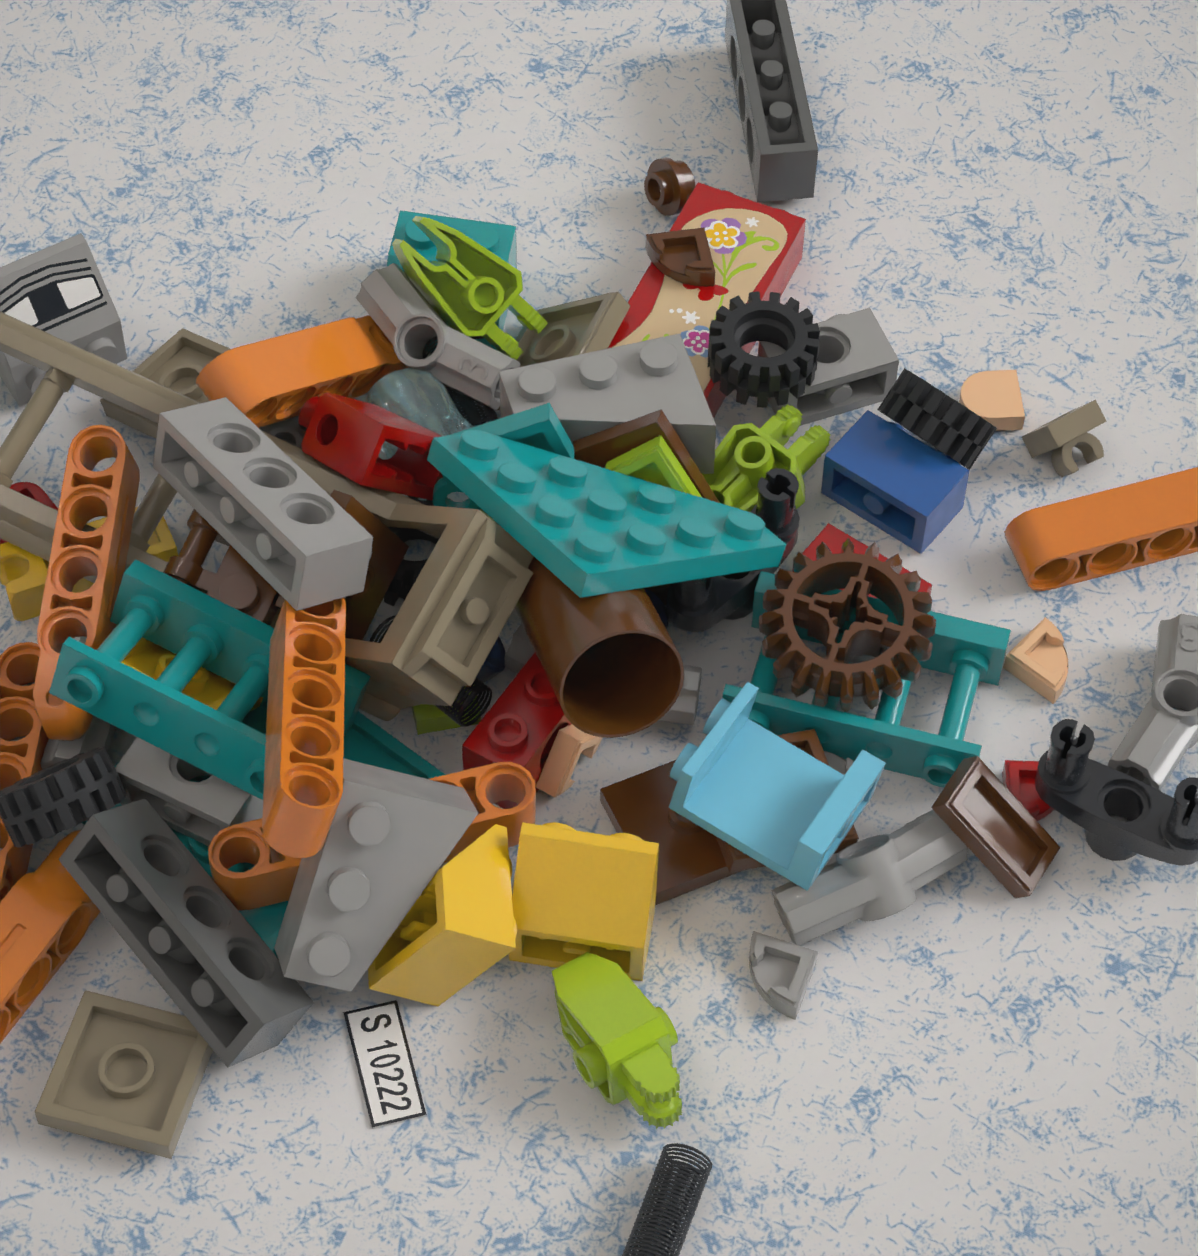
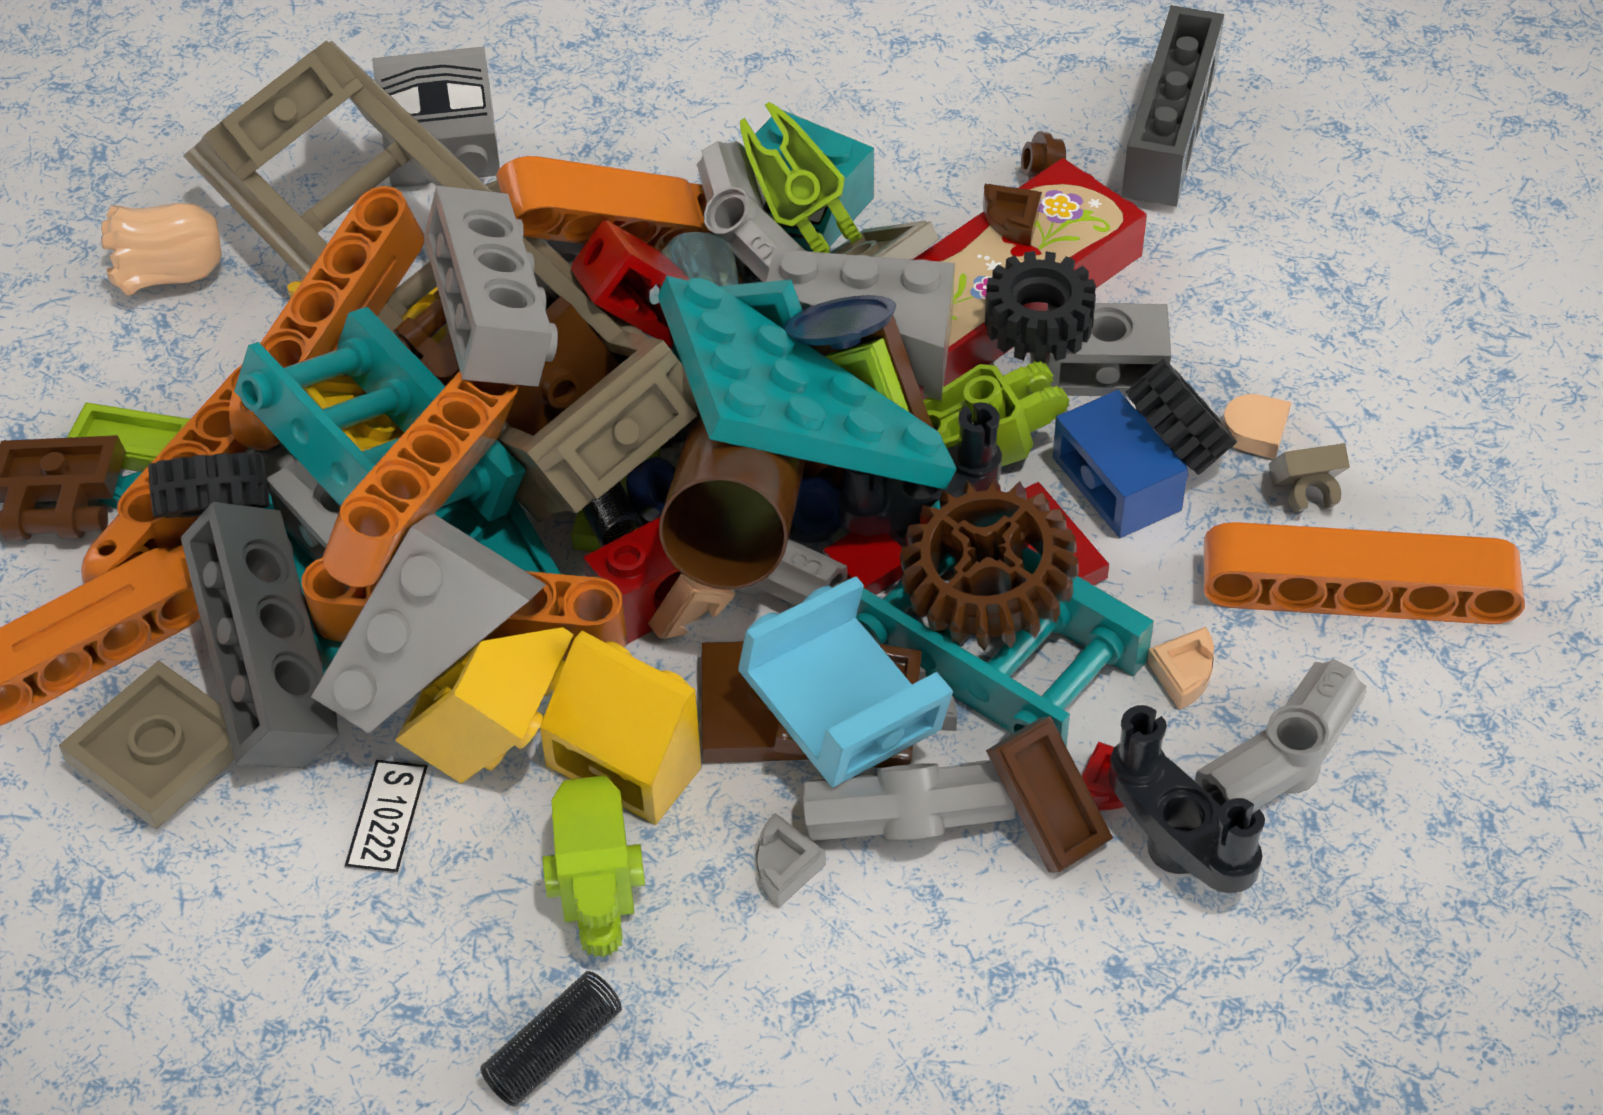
camera: 25 degrees right, 5 degrees down
(616, 429) = (841, 321): none -> dark blue piece
(716, 651) = (869, 558): none -> red tile

